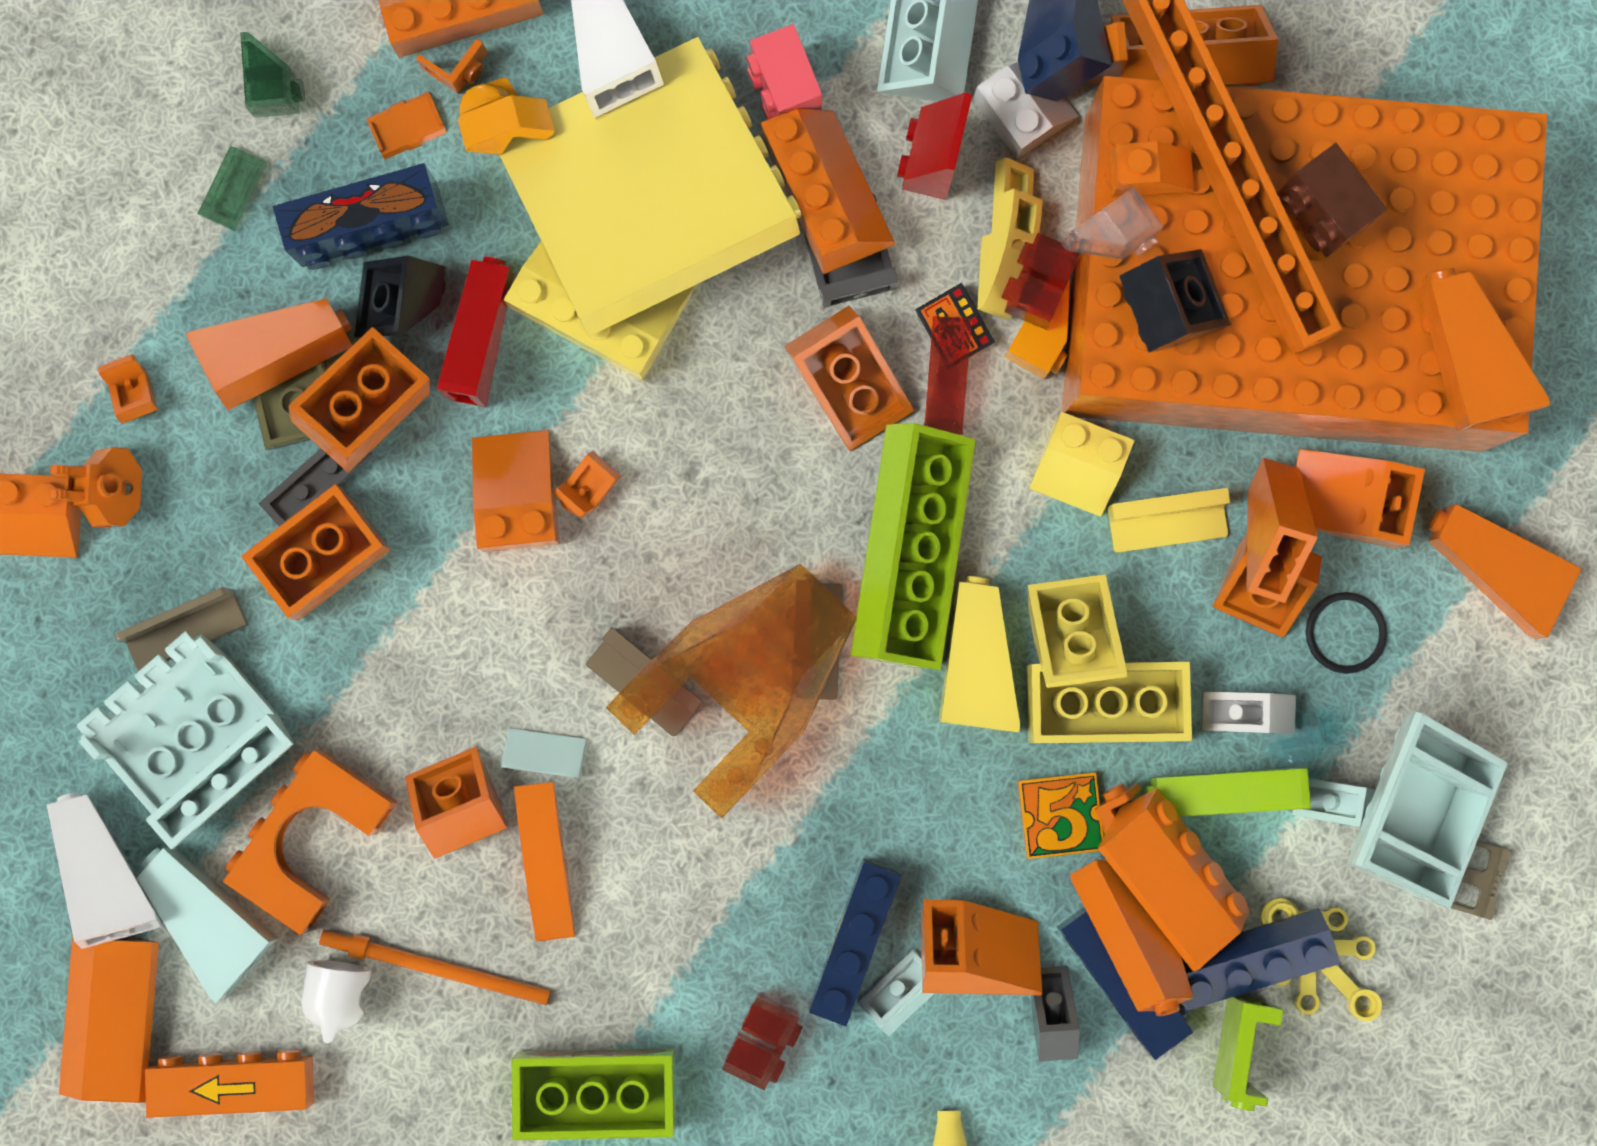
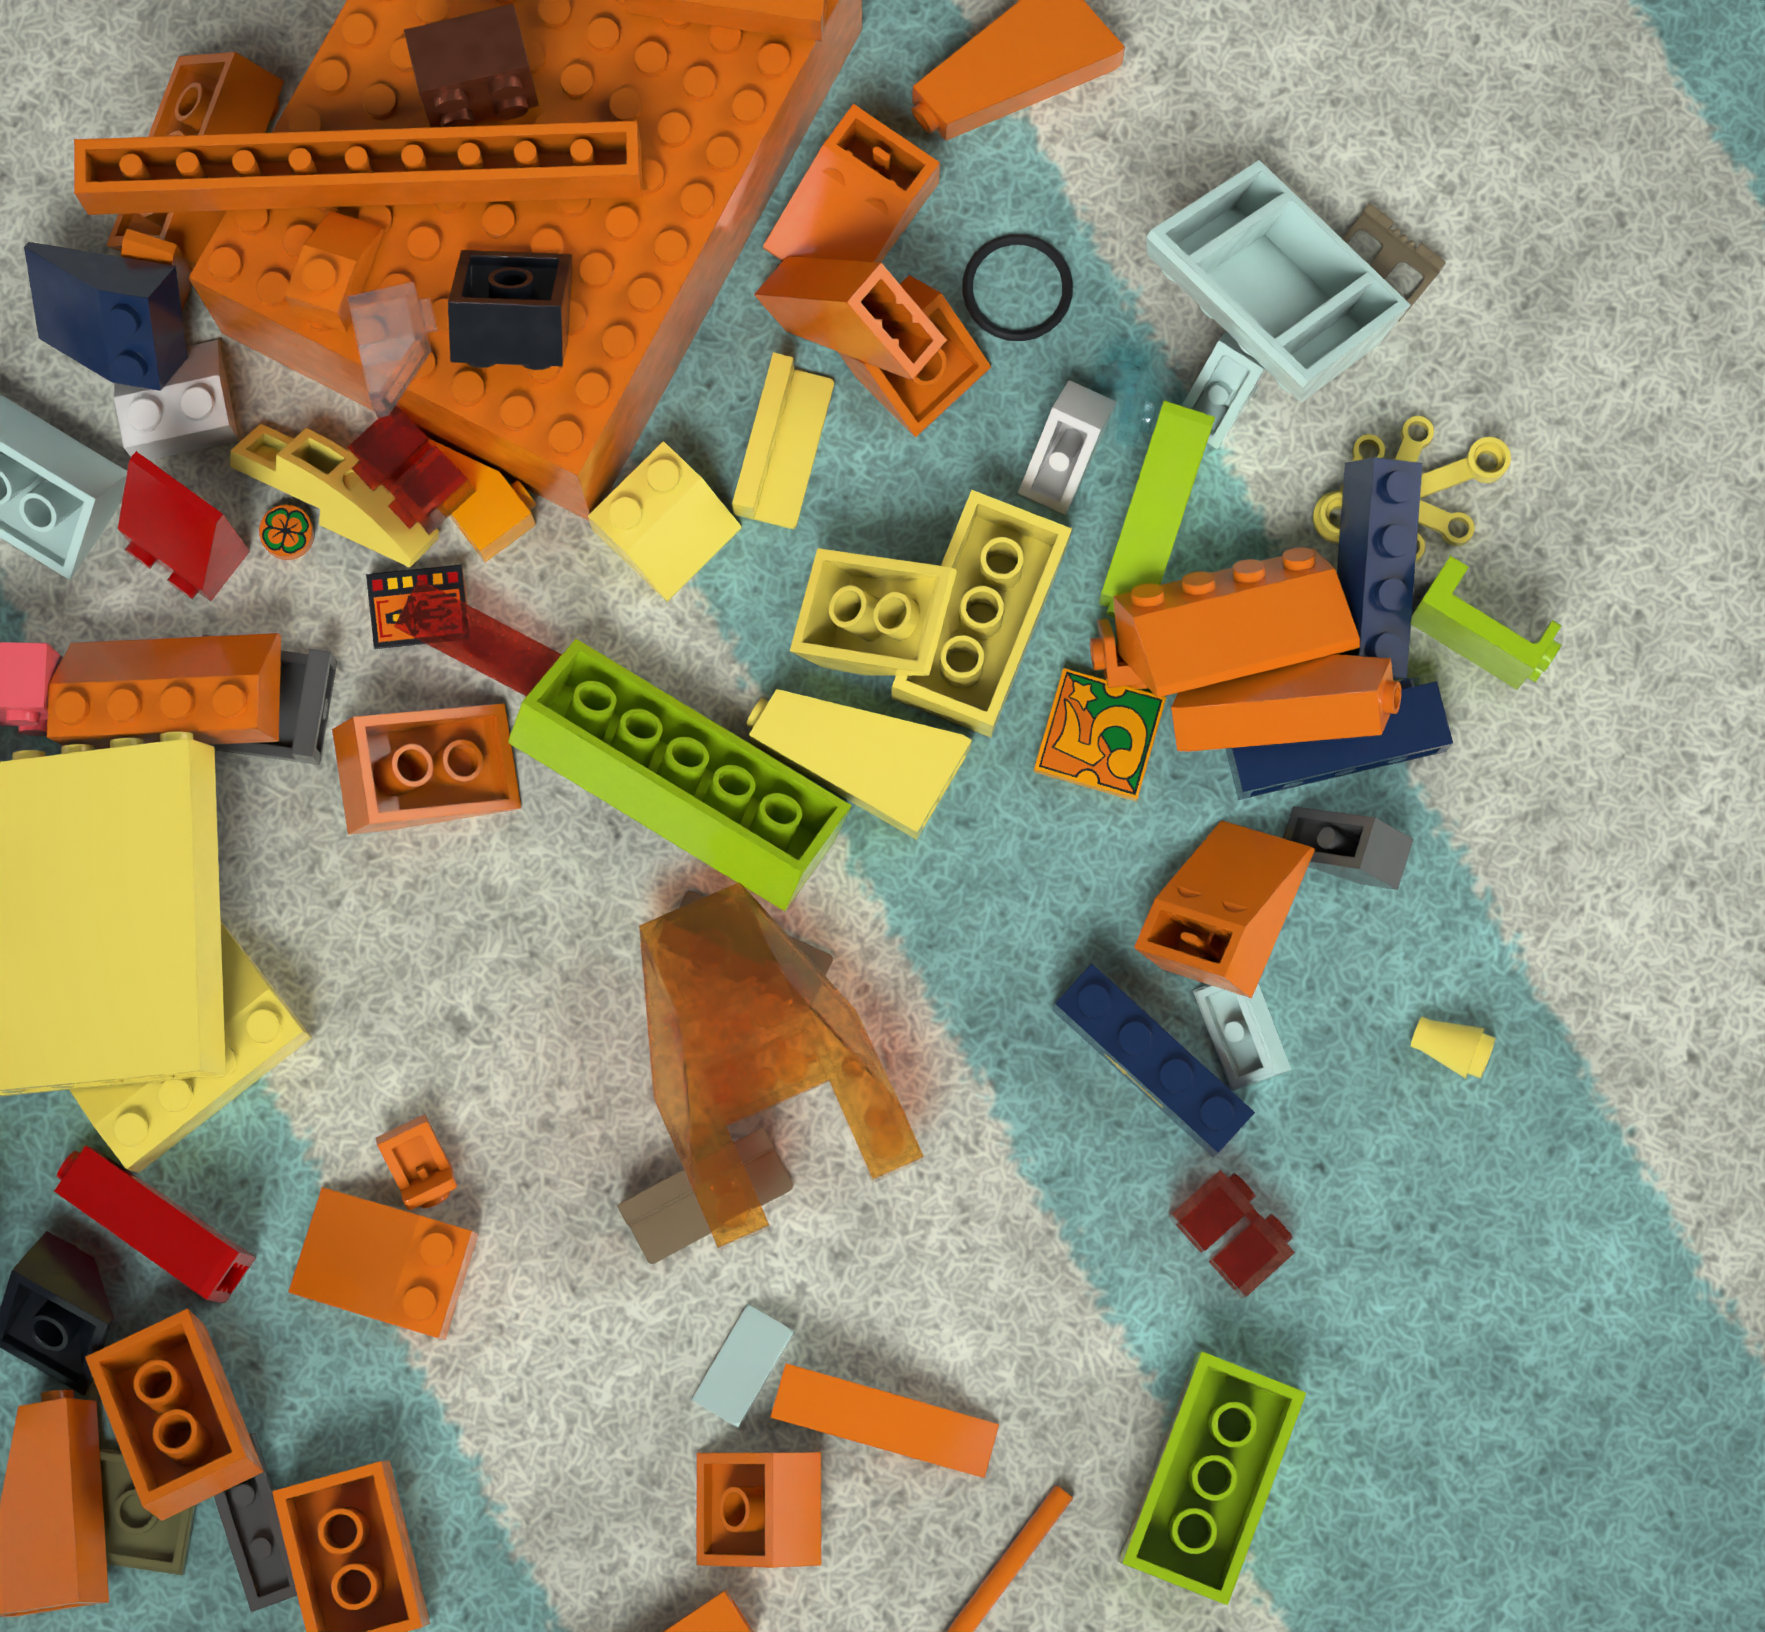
camera: 65 degrees left, 5 degrees down
(968, 218) = (286, 532): none -> tile

